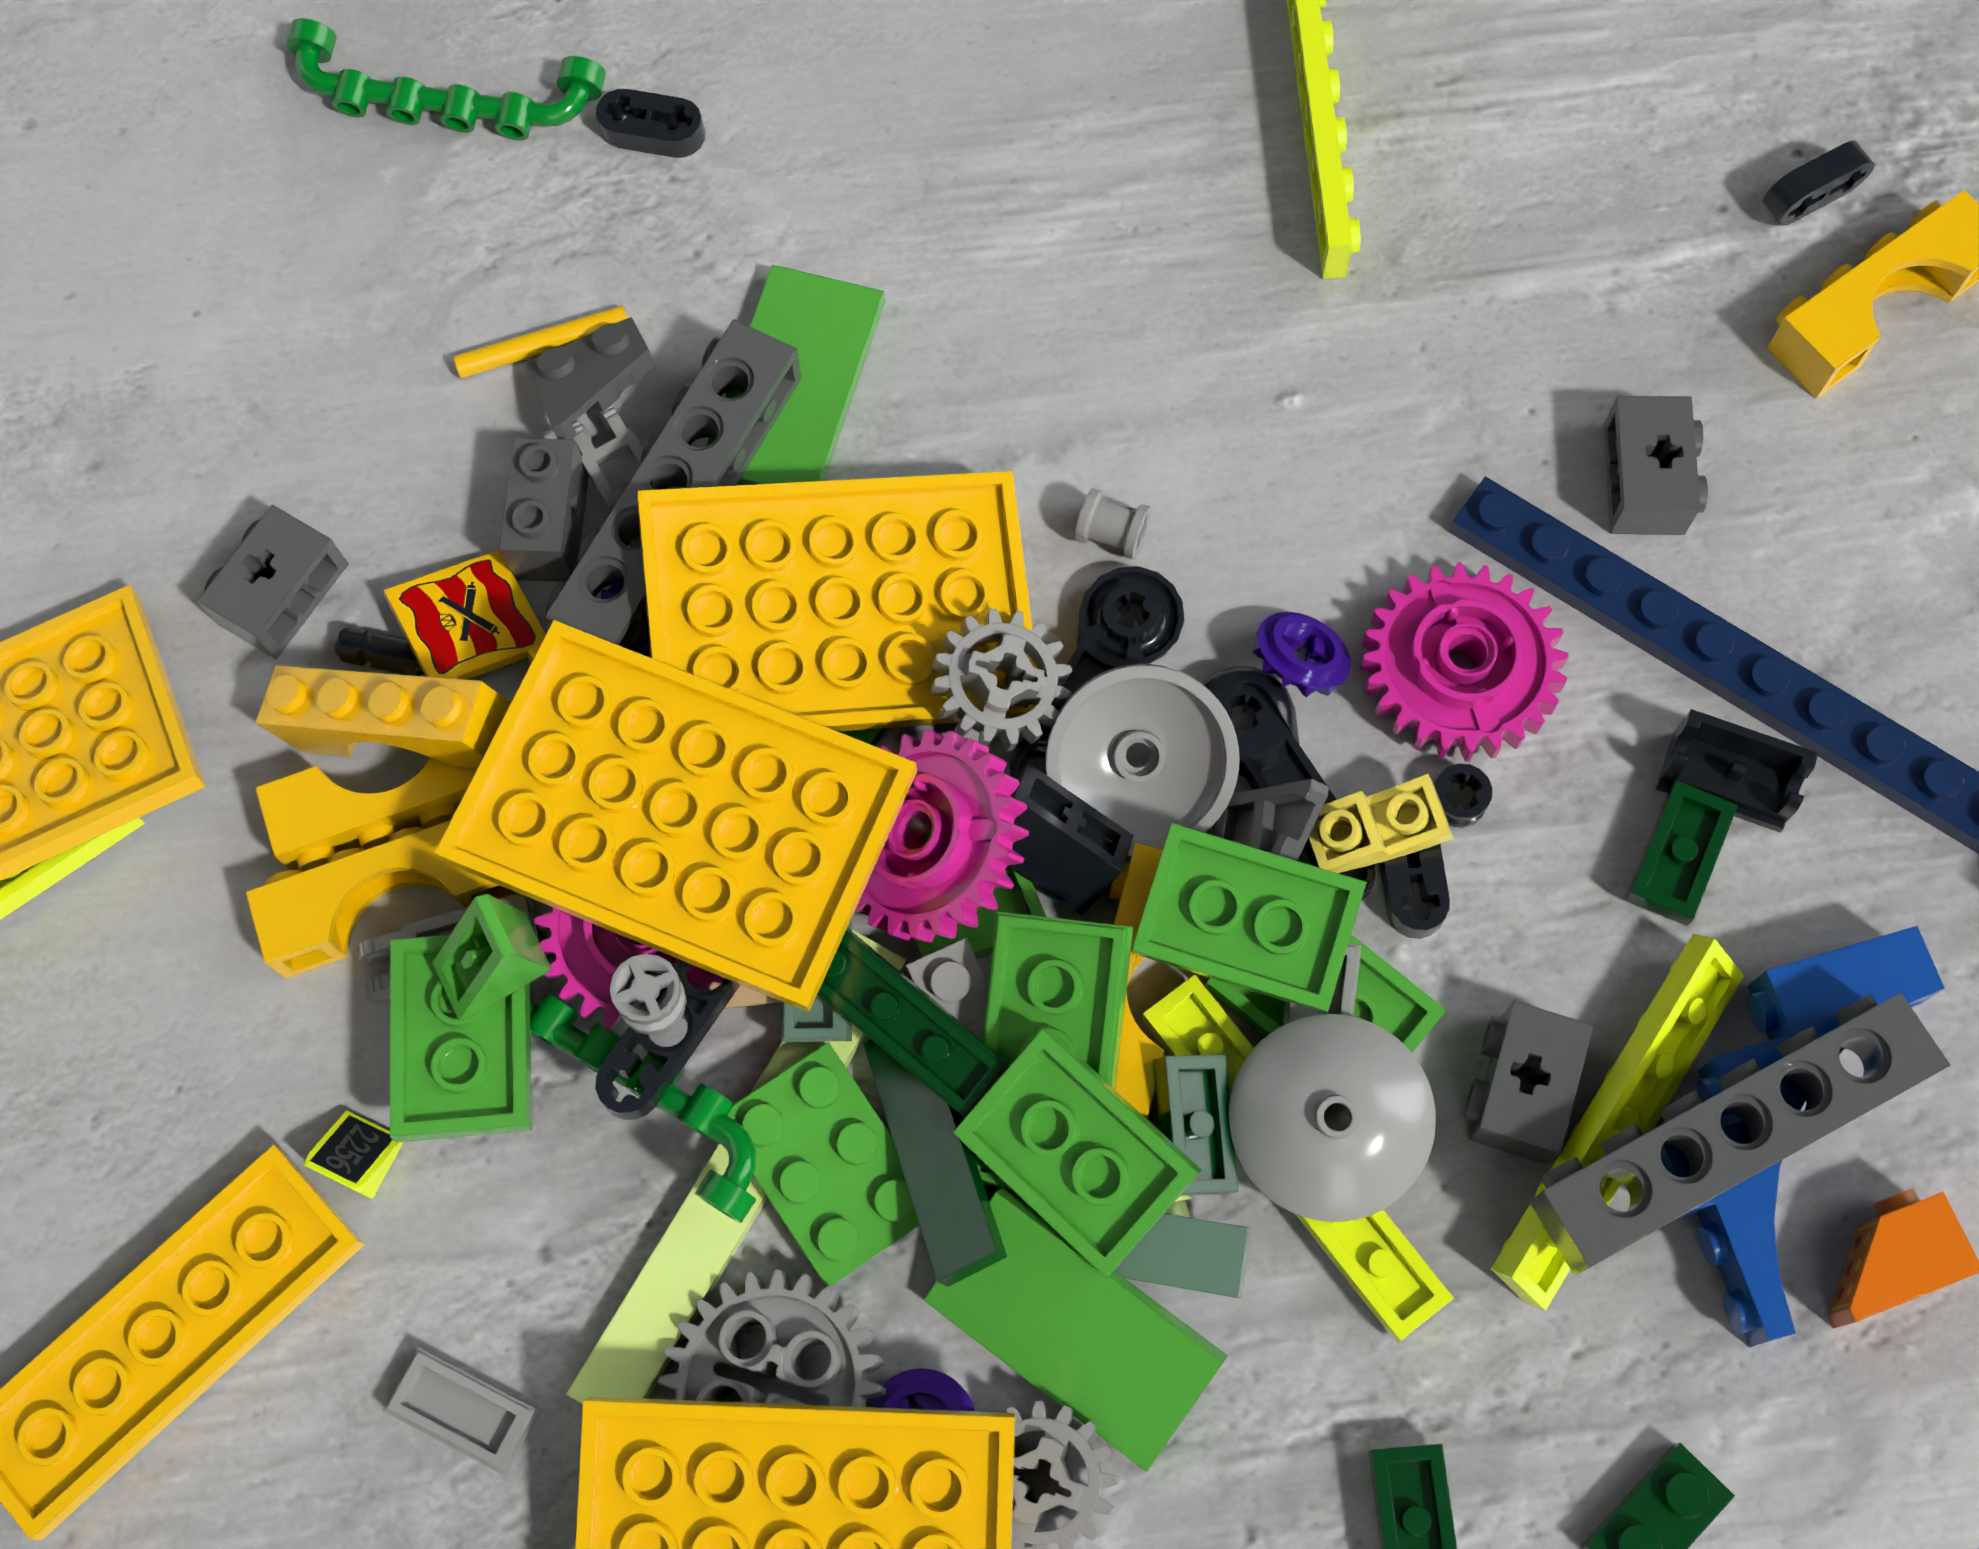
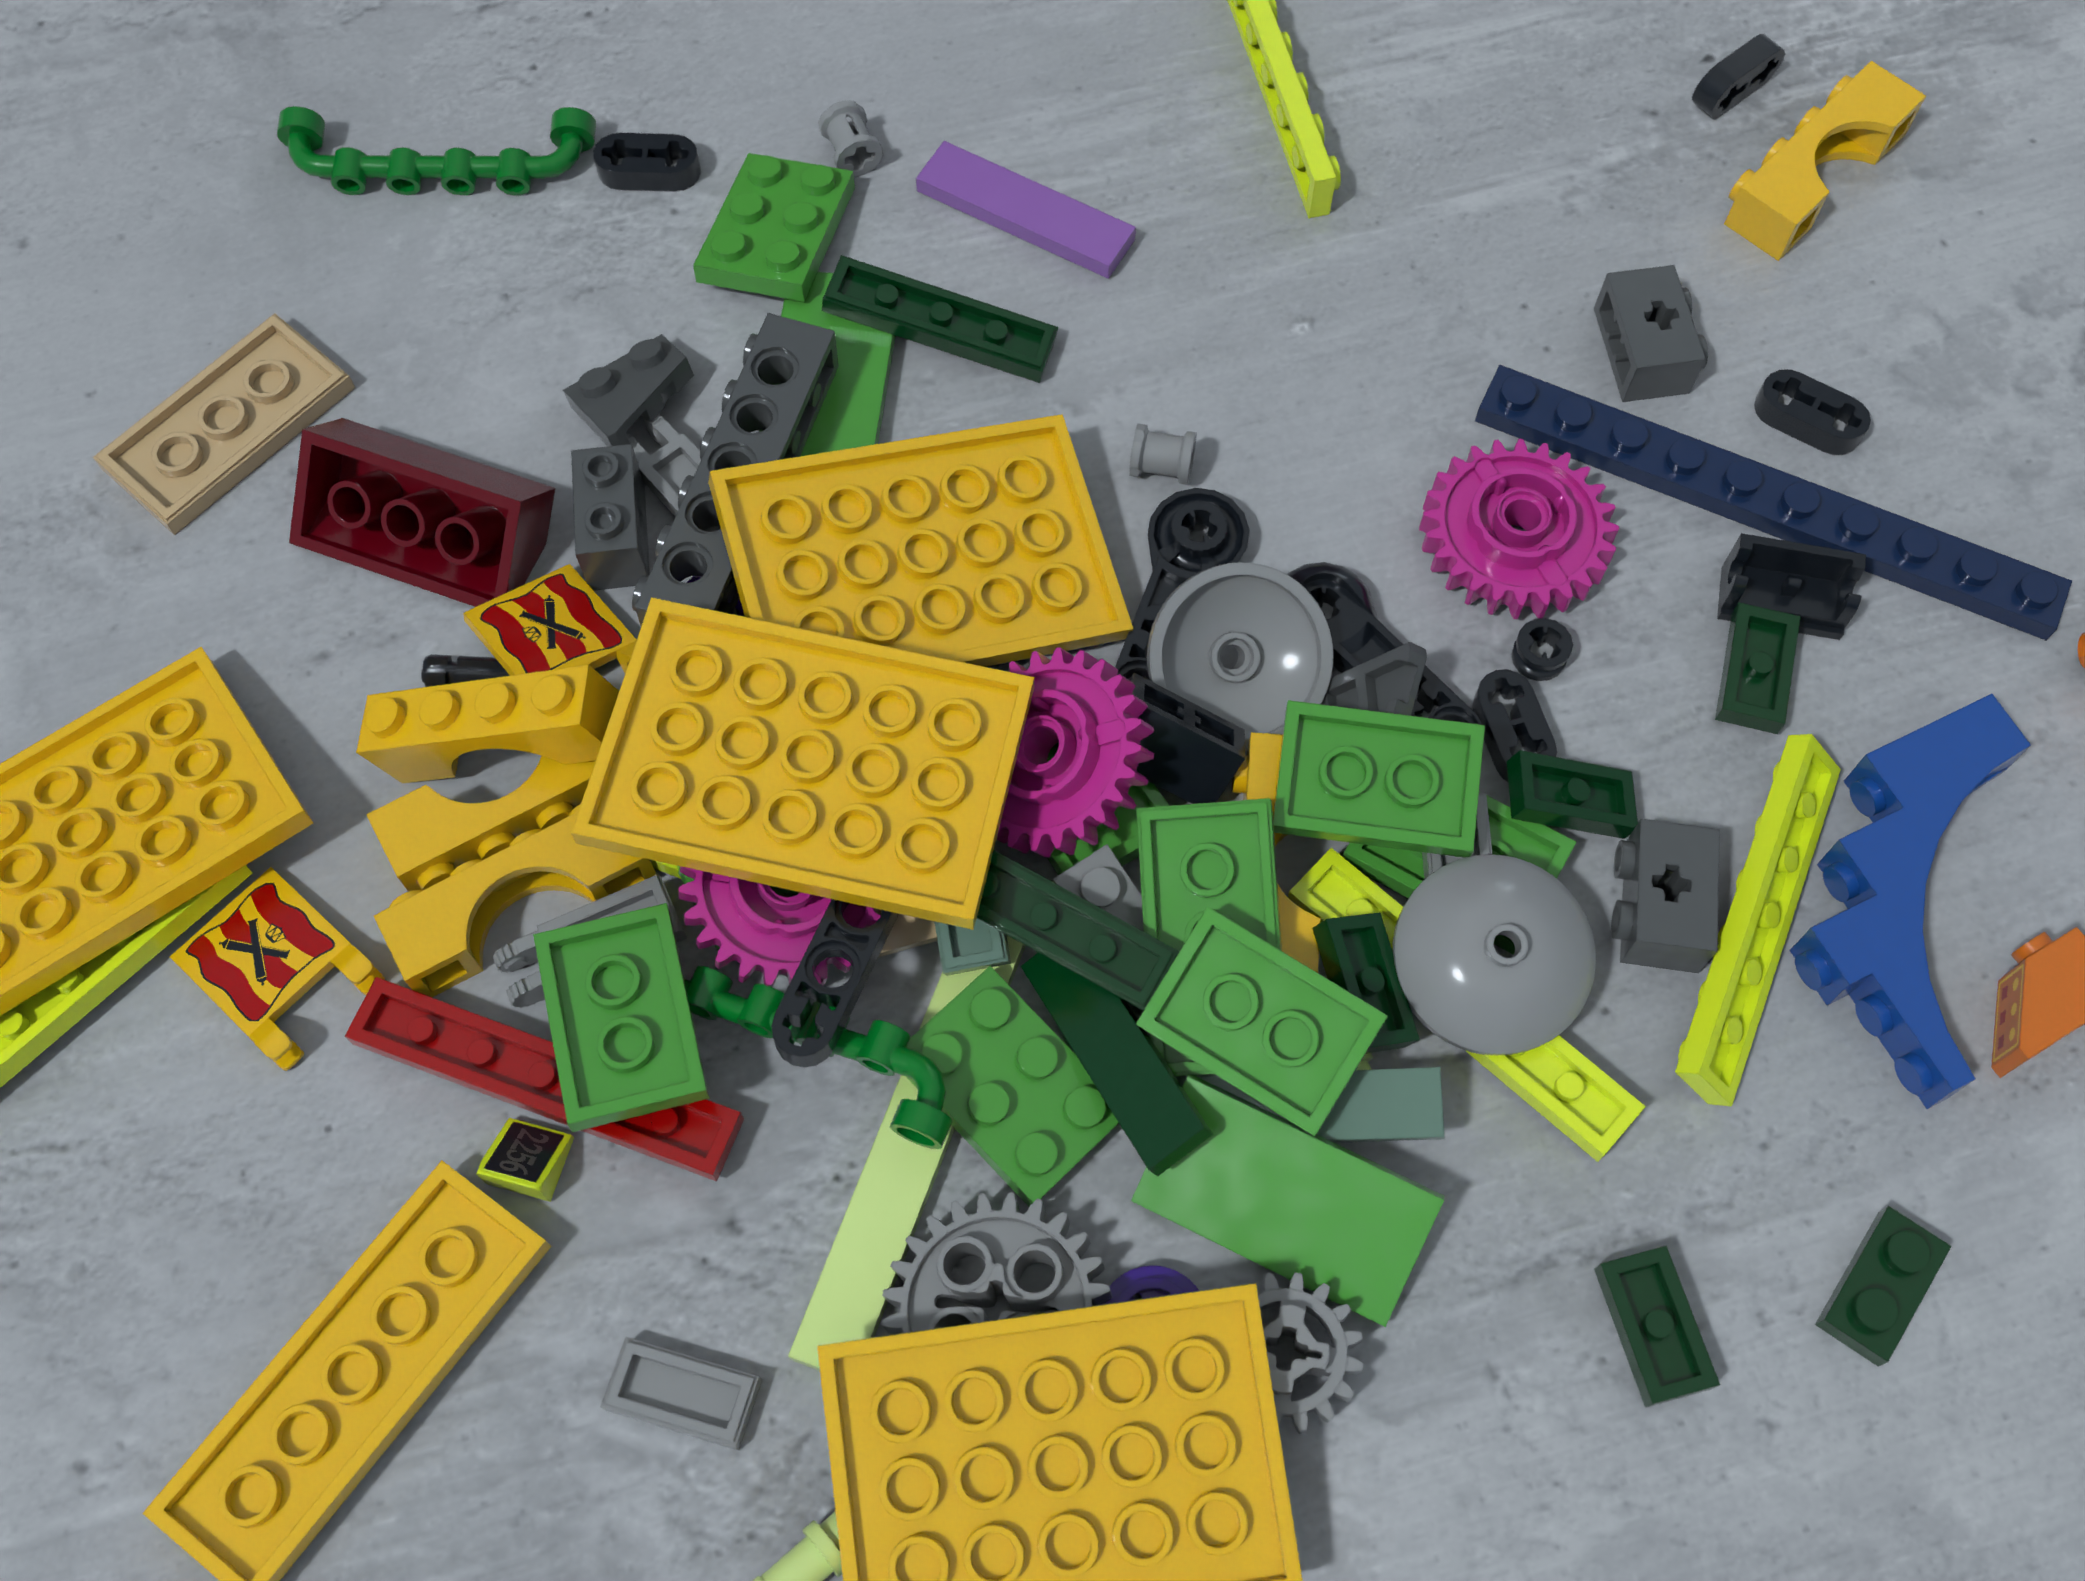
camera: 15 degrees left, 5 degrees down
(144, 910) = (265, 957): none -> flag
(190, 348) = (224, 423): none -> tan tile
(273, 581) = (347, 623): dark grey brick -> none
(359, 474) = (417, 512): none -> dark red slope
(359, 1066) = (525, 1074): none -> red plate
(488, 956) = (638, 929): bright green slope -> none
(534, 343) = (567, 372): yellow bar -> none
(641, 981) = (808, 919): light grey wheel -> none
(765, 215) = (774, 227): none -> bright green plate
(860, 127) = (850, 137): none -> light grey bush
(914, 341) = (939, 318): none -> dark green tile
(975, 675) = (1093, 599): light grey gear -> none
(1028, 229) = (1026, 209): none -> medium lavender tile
(1327, 656) = (1388, 546): dark purple gear -> none
(1379, 826) = (1480, 681): light yellow slope -> none
(1452, 959) = (1571, 794): none -> dark green plate
(1809, 577) = (1812, 412): none -> black beam
(1894, 1056) = (1994, 793): dark grey brick -> none

